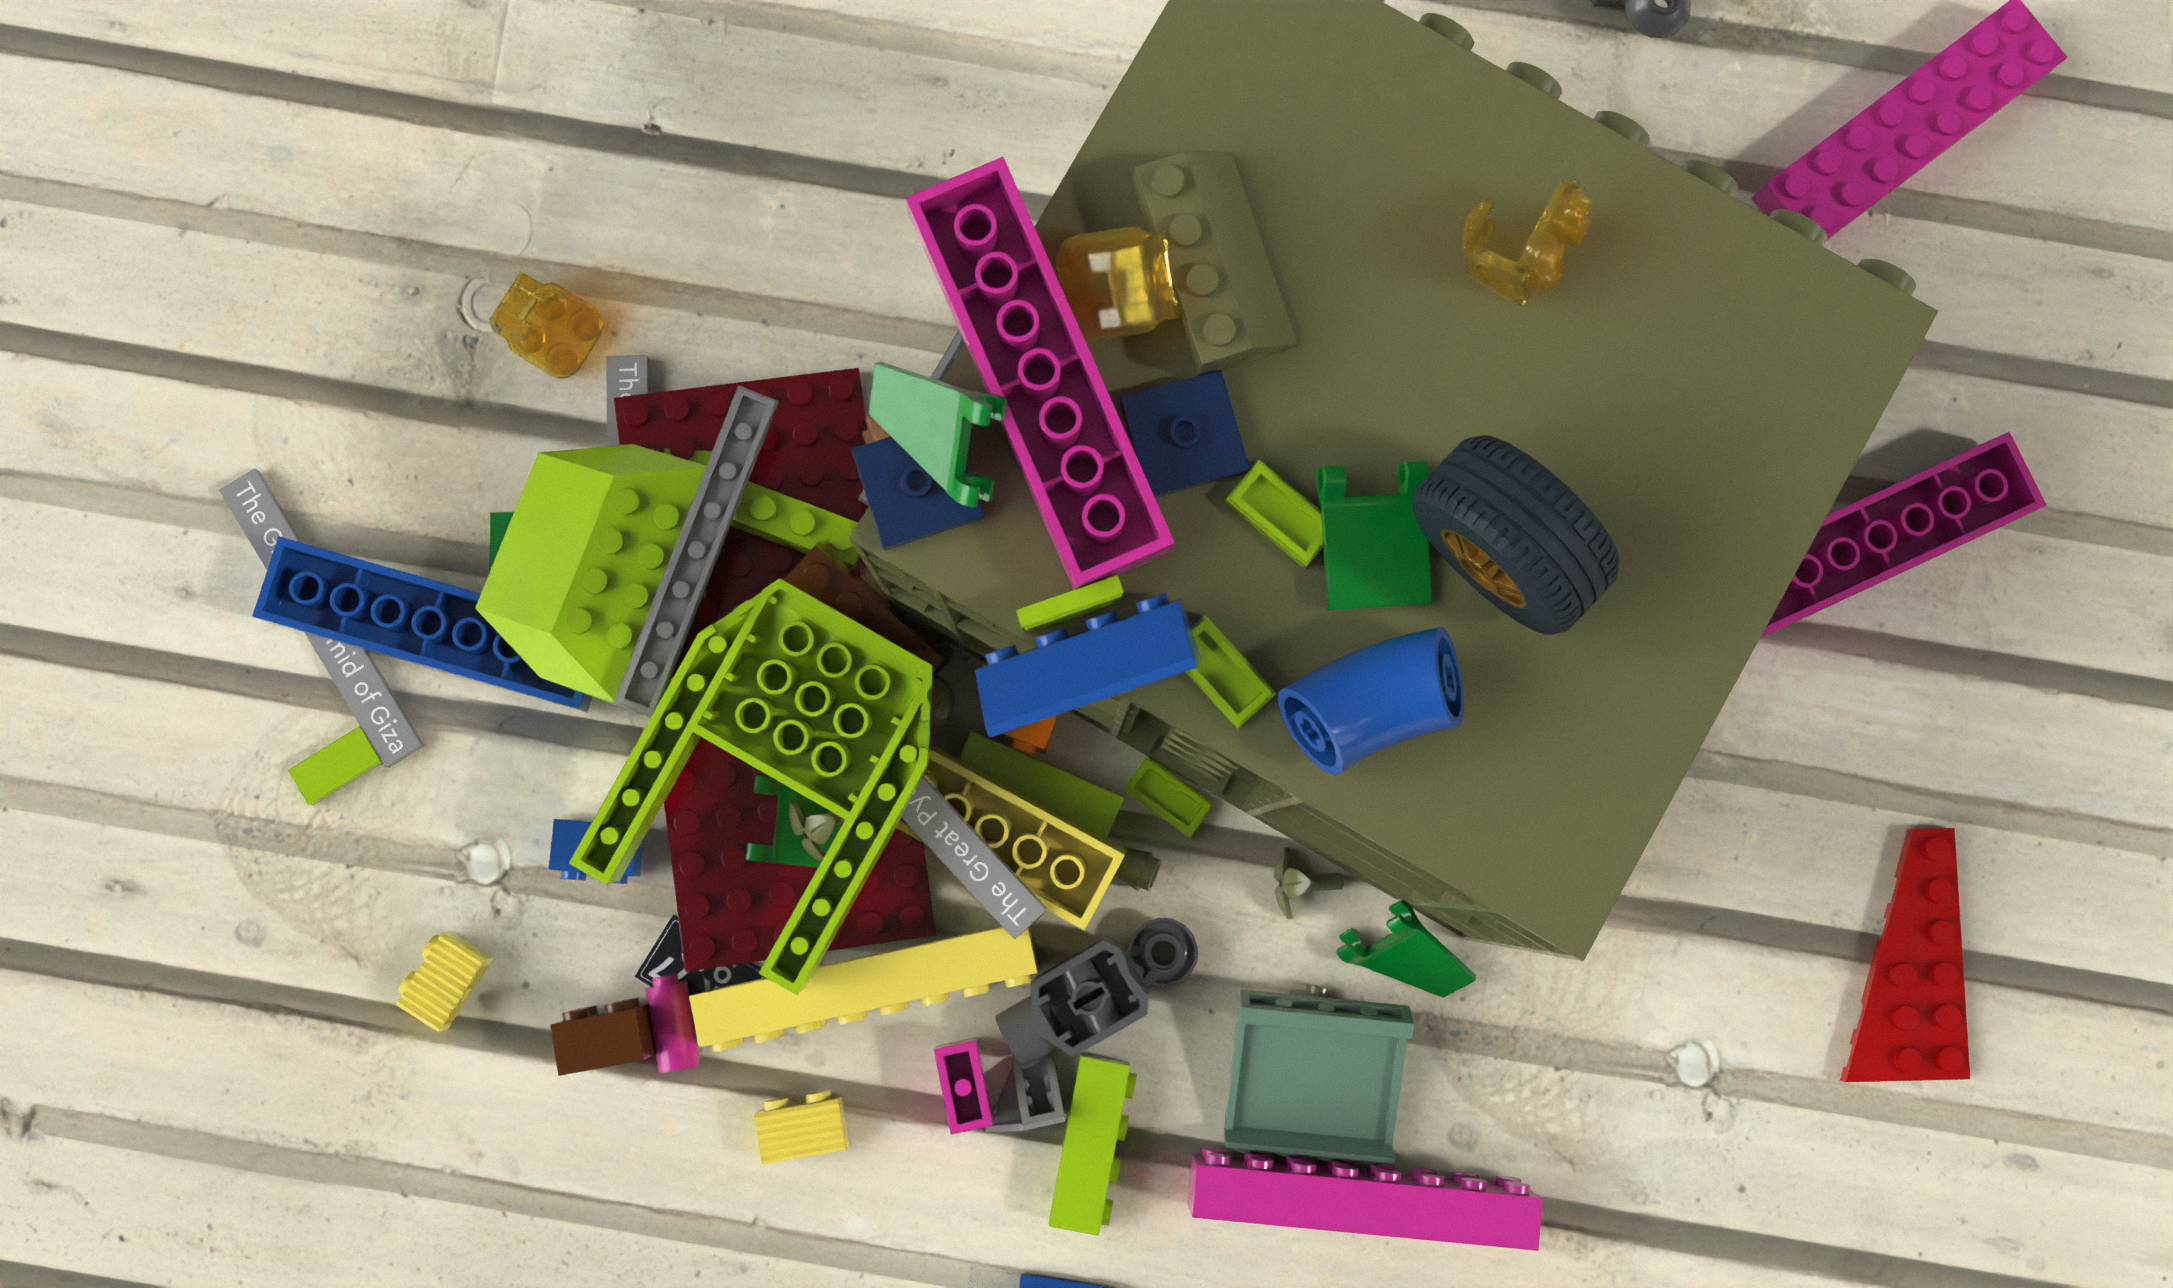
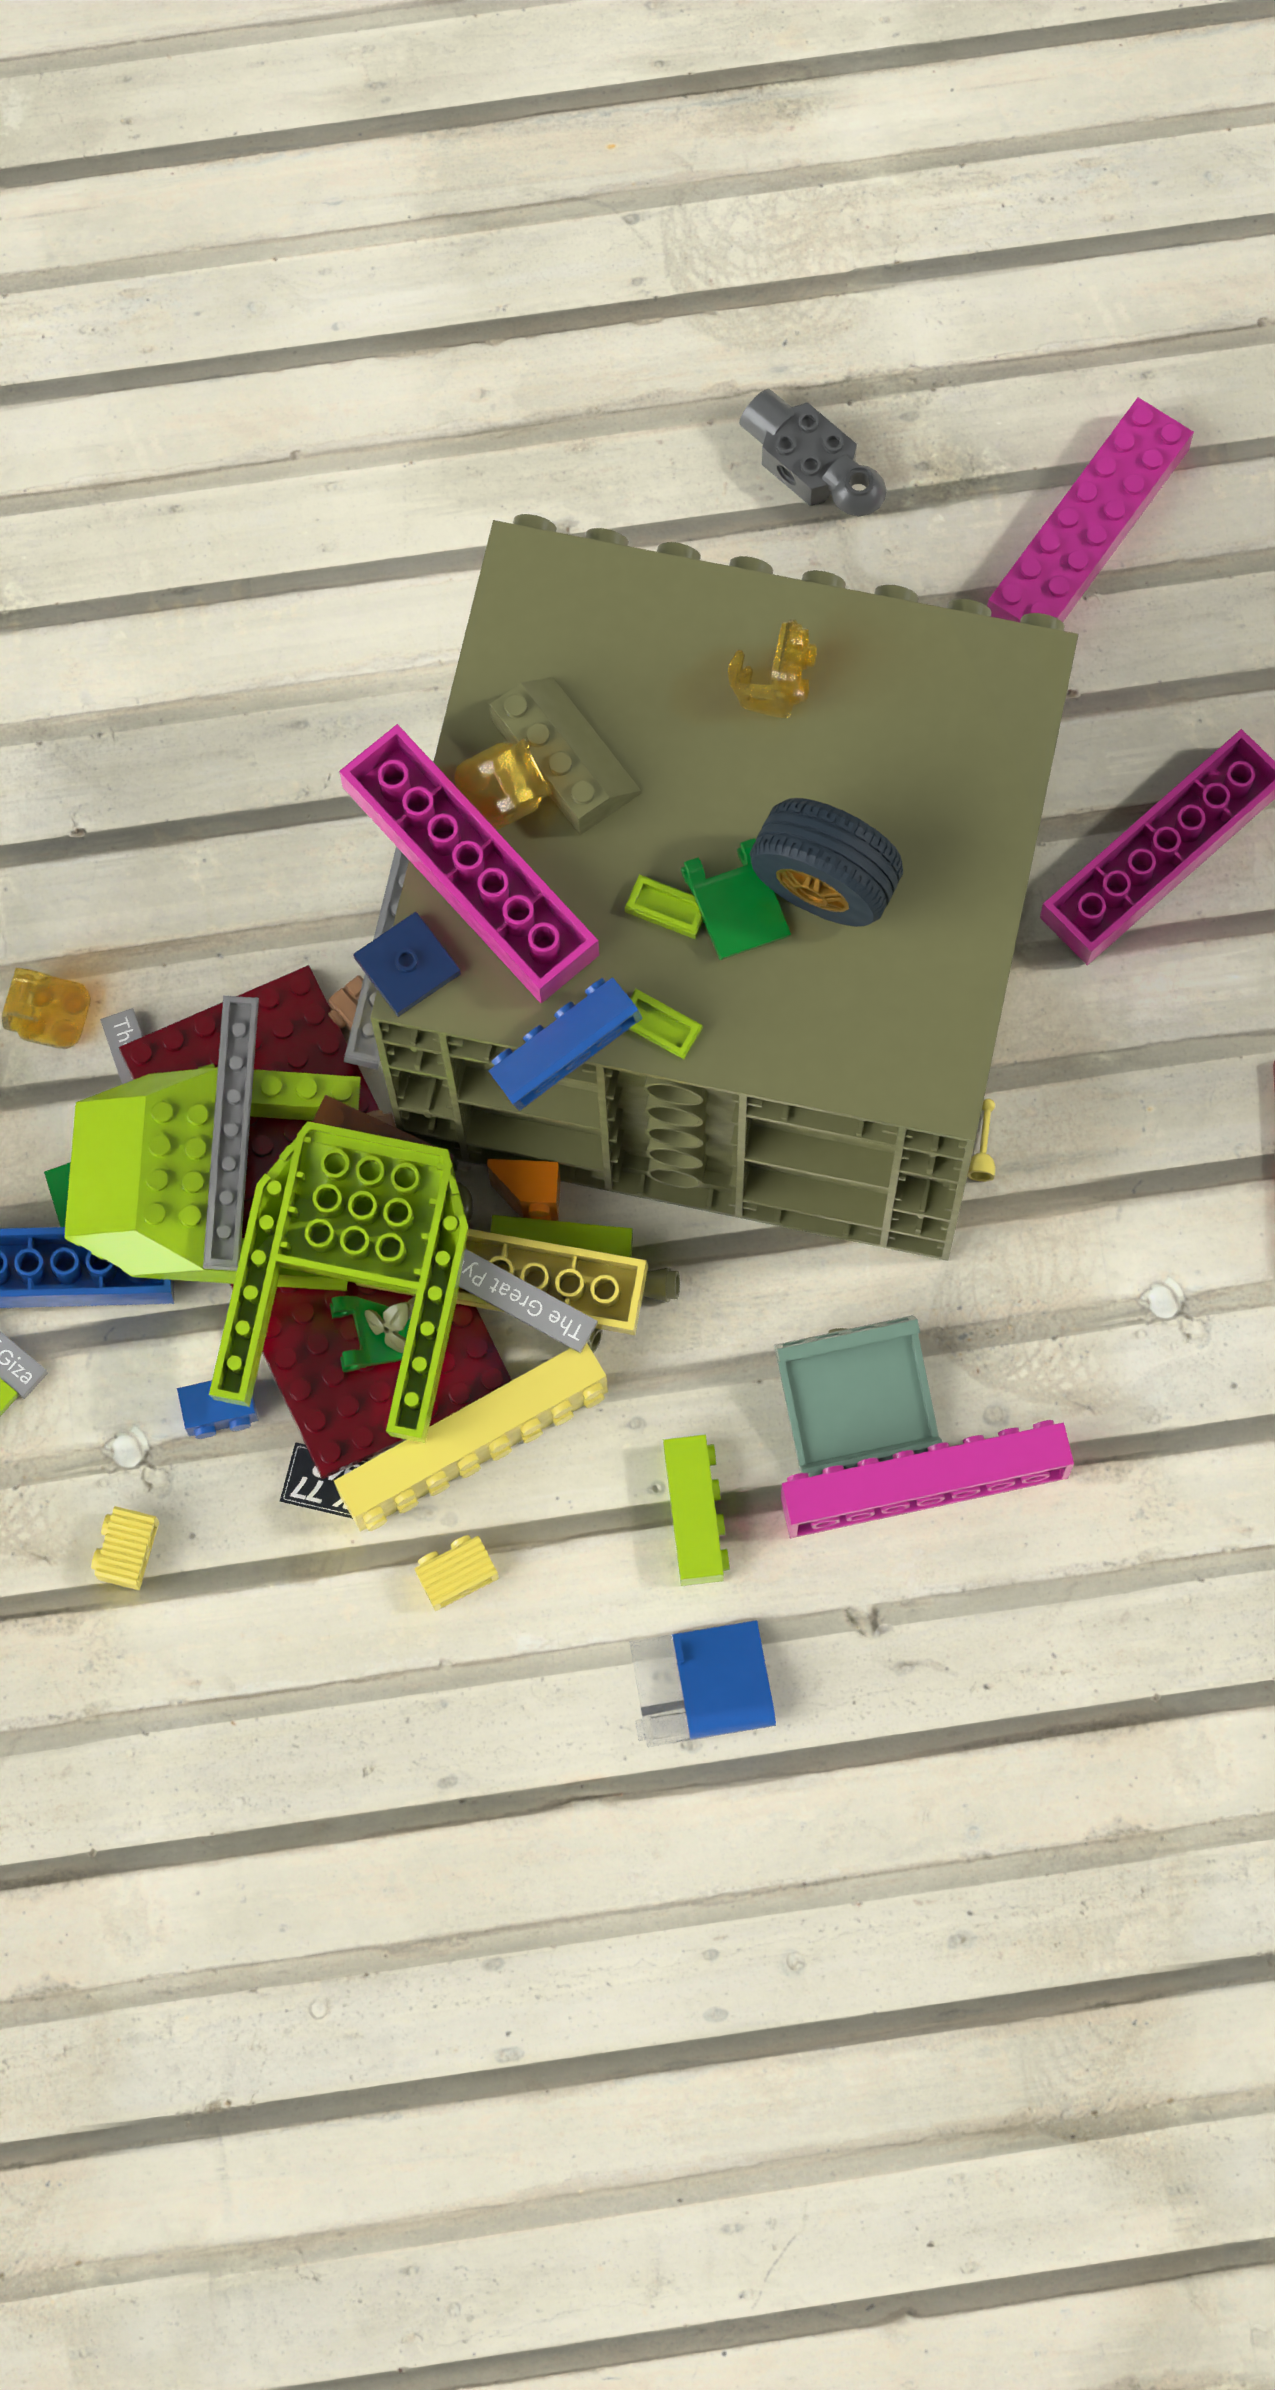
camera: 10 degrees left, 10 degrees down
(602, 1039) = (273, 1544): reddish brown brick -> none
(672, 1024) = (323, 1523): dark pink brick -> none
(935, 426) = (407, 916): flag -> none
(964, 1085) = (576, 1493): dark pink brick -> none
(1029, 1097) = (633, 1491): light grey slope -> none
(1070, 605) = (539, 1009): lime tile -> none
(1095, 992) = (659, 1386): dark grey brick -> none
(1168, 797) = (669, 1223): lime tile -> none
(1185, 433) = (583, 872): dark blue plate -> none
(1296, 883) = (795, 1250): olive plant -> none
(1375, 699) = (768, 1004): blue brick -> none
(1408, 954) = (903, 1282): green flag -> none

